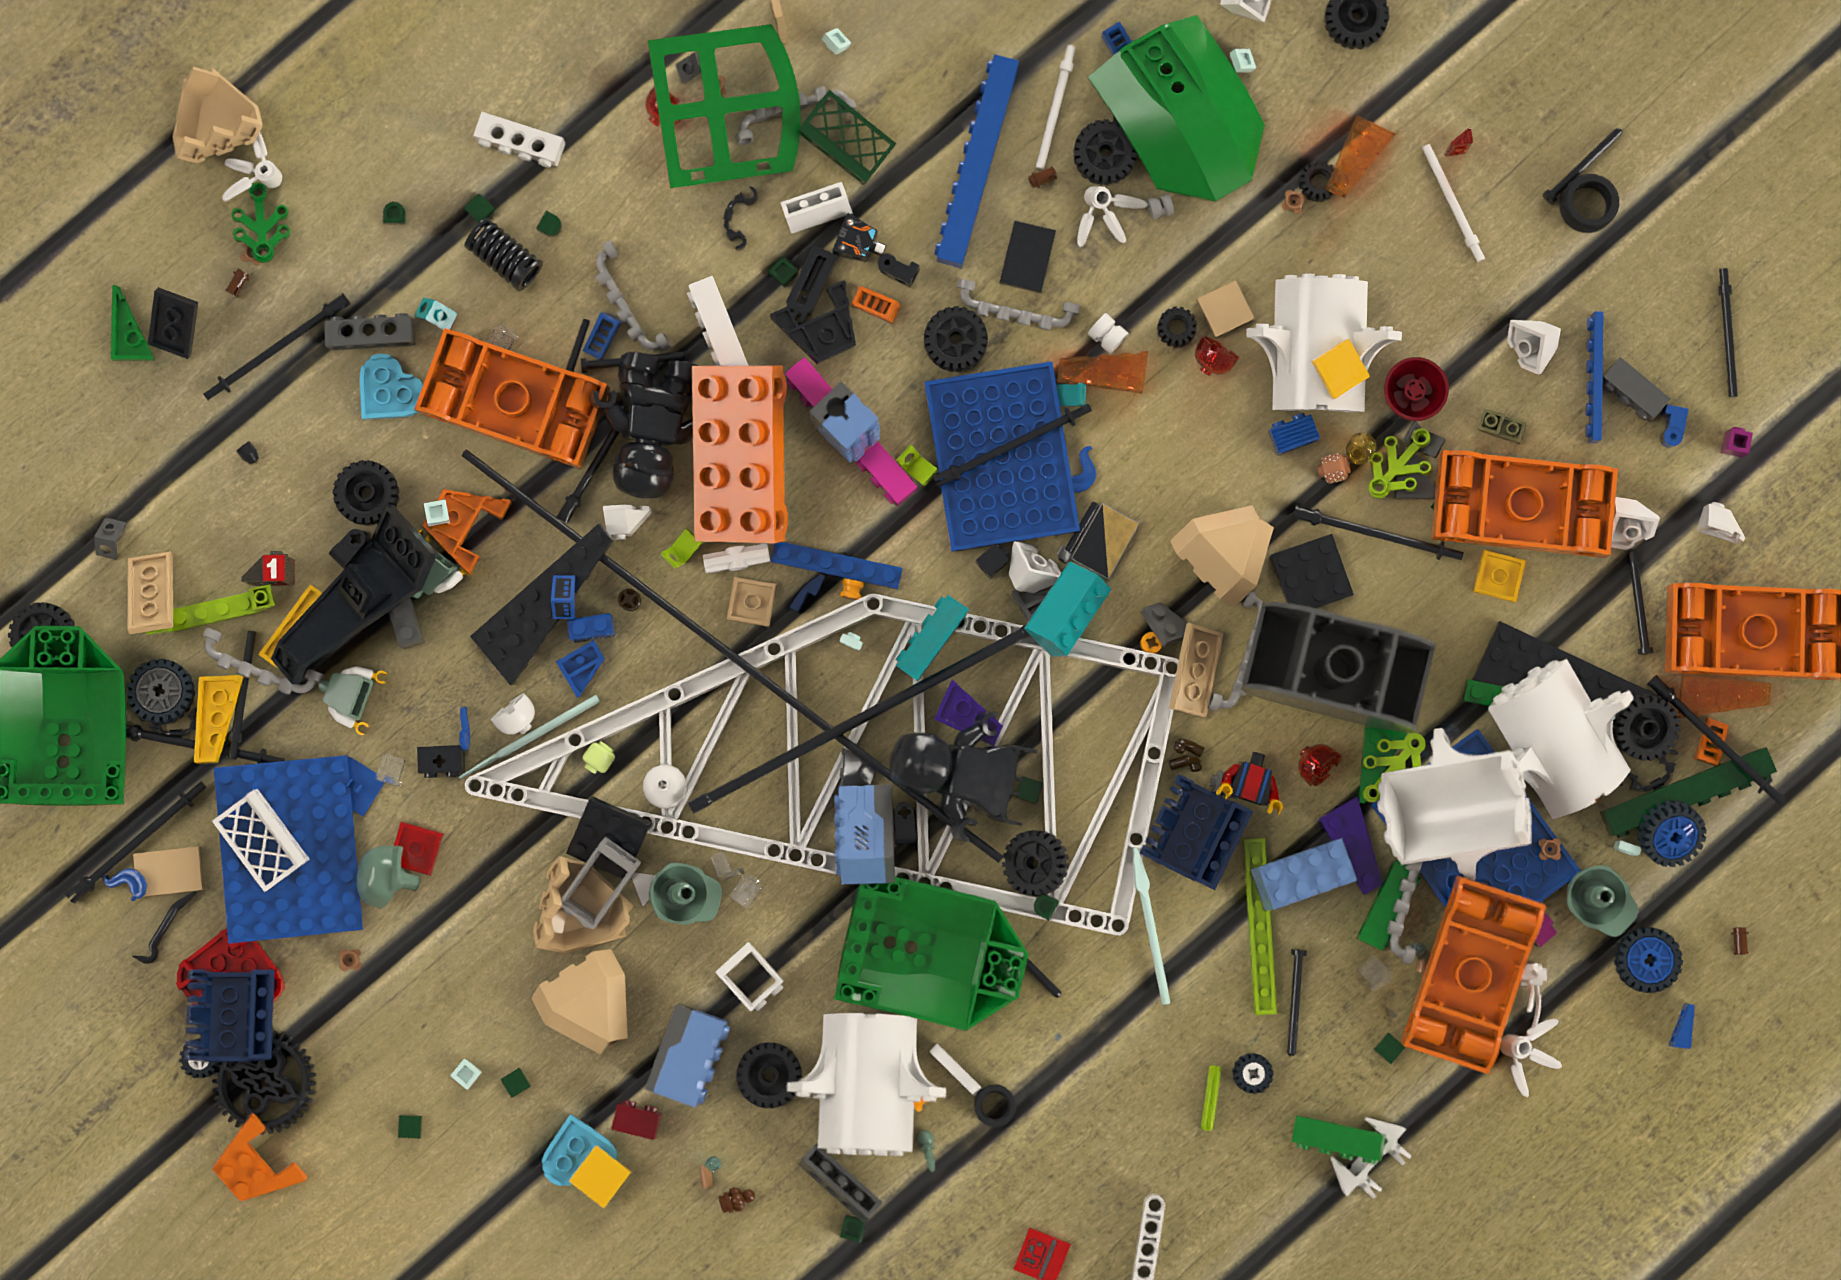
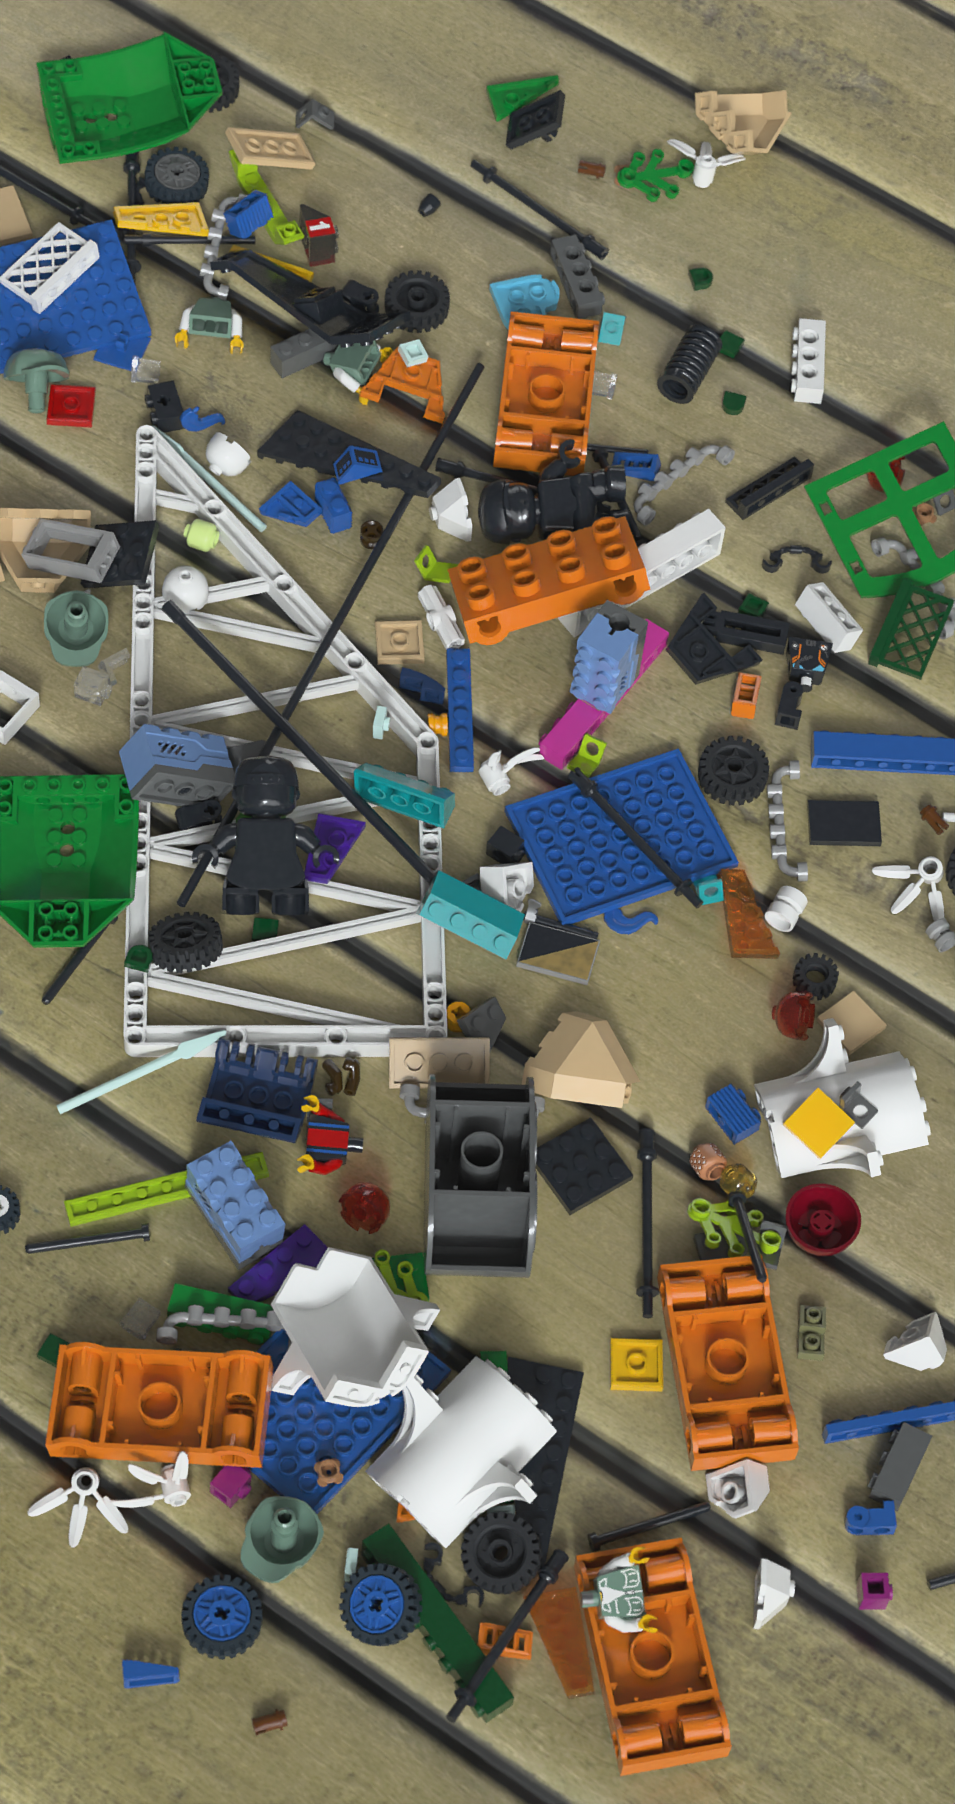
camera: 65 degrees right, 25 degrees down
(232, 632) = (248, 214): none -> blue brick
(659, 212) = (770, 491): none -> black fence
(915, 551) = (495, 774): none -> white plant
(1329, 336) = (850, 1099): none -> dark grey bracket
(1422, 455) = (737, 1200): none -> black bar
(1721, 645) = (620, 1594): none -> torso

